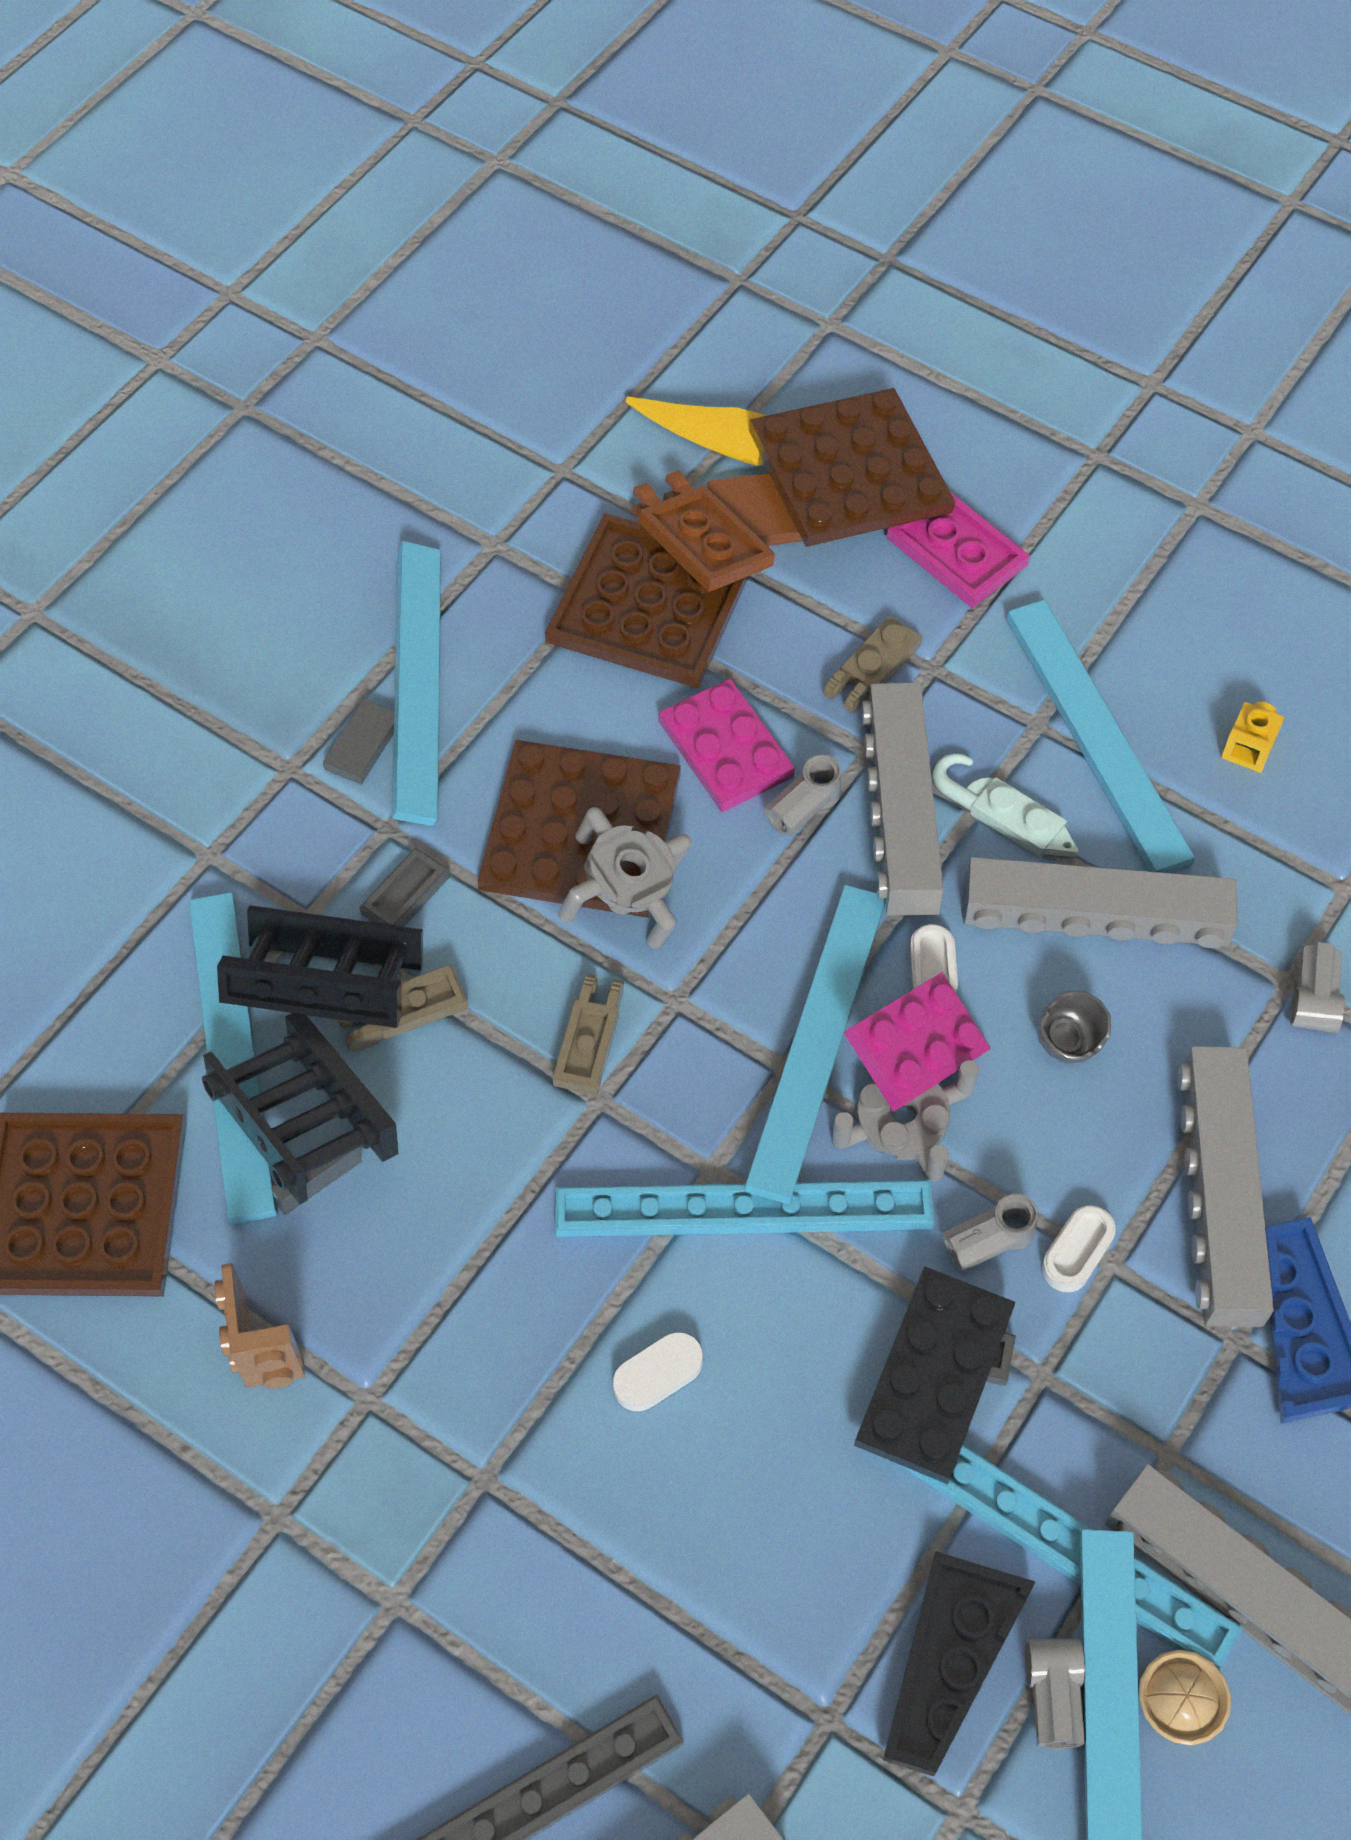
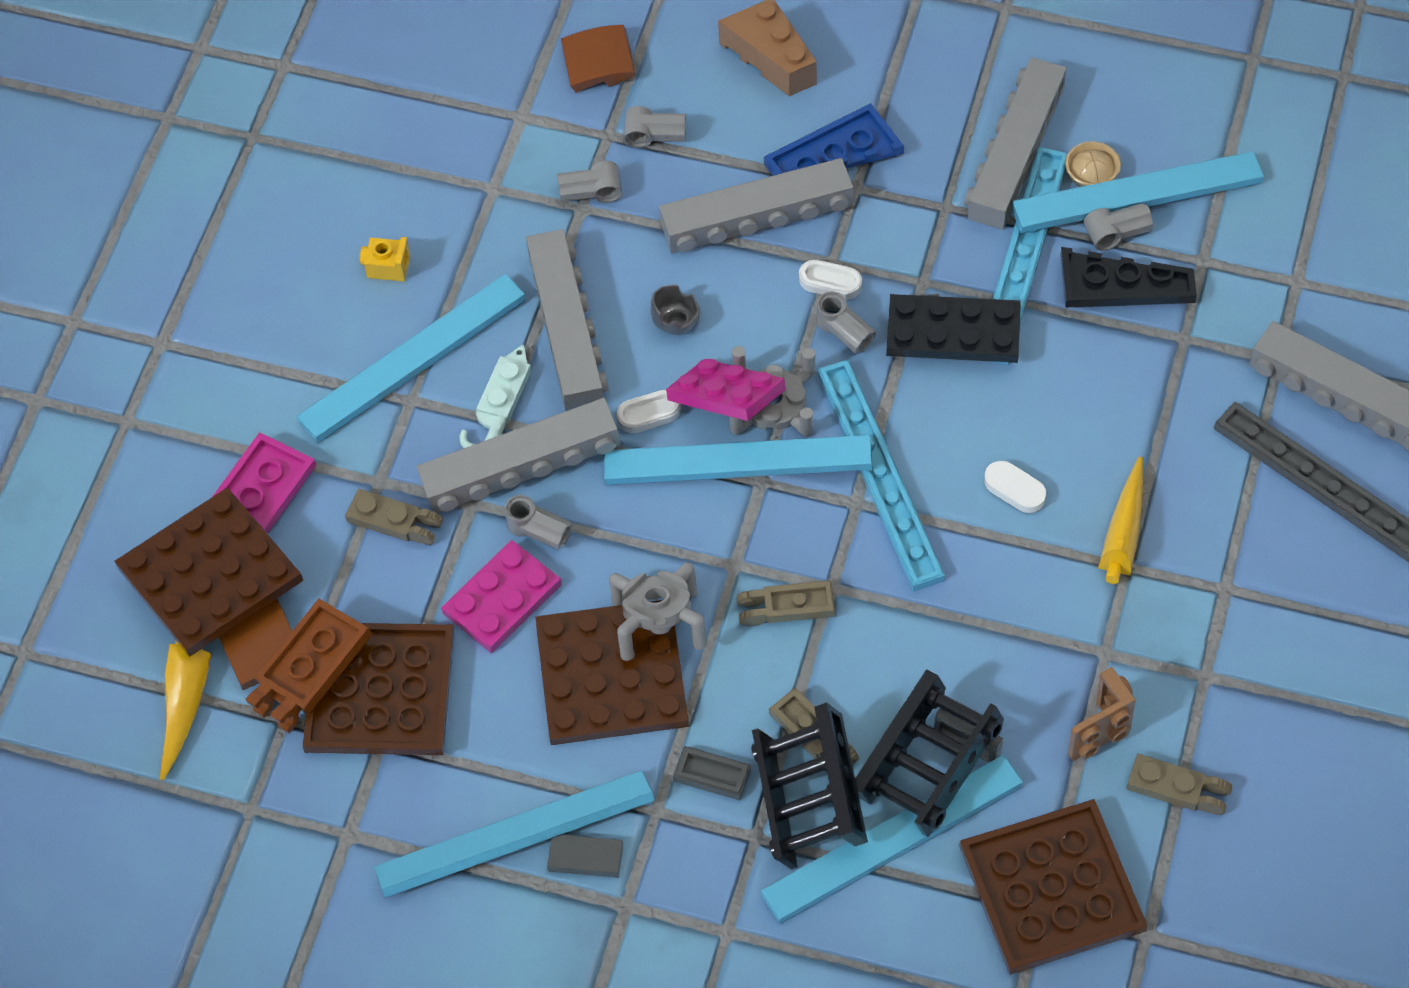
camera: 105 degrees left, 0 degrees up
(139, 1409) = (1177, 785): none -> dark tan hinge
(538, 1494) = (1124, 528): none -> yellow piece

